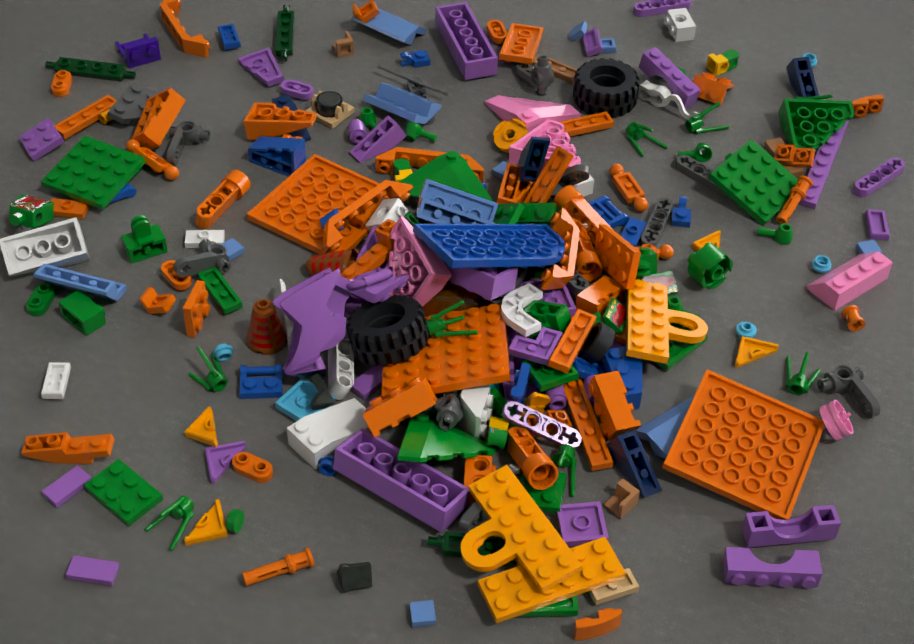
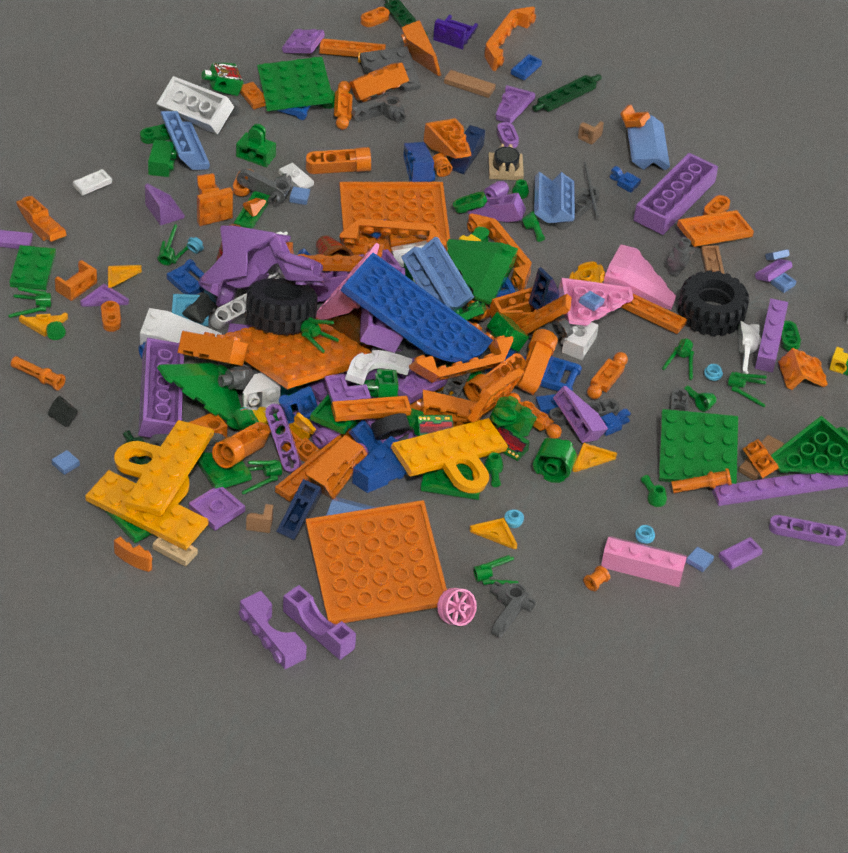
camera: 50 degrees right, 0 degrees up
(145, 349) = (162, 205): none -> medium lavender slope
(146, 73) = (420, 46): none -> orange slope
(181, 466) = (78, 283): none -> orange panel
(209, 77) = (469, 83): none -> medium nougat tile
(221, 282) = (254, 206): none -> orange slope
(357, 151) = (469, 202): none -> green plate
(557, 140) = (591, 300): none -> medium blue tile
(671, 224) = (580, 415): none -> medium lavender slope
(673, 131) = (713, 372): none -> medium azure plate

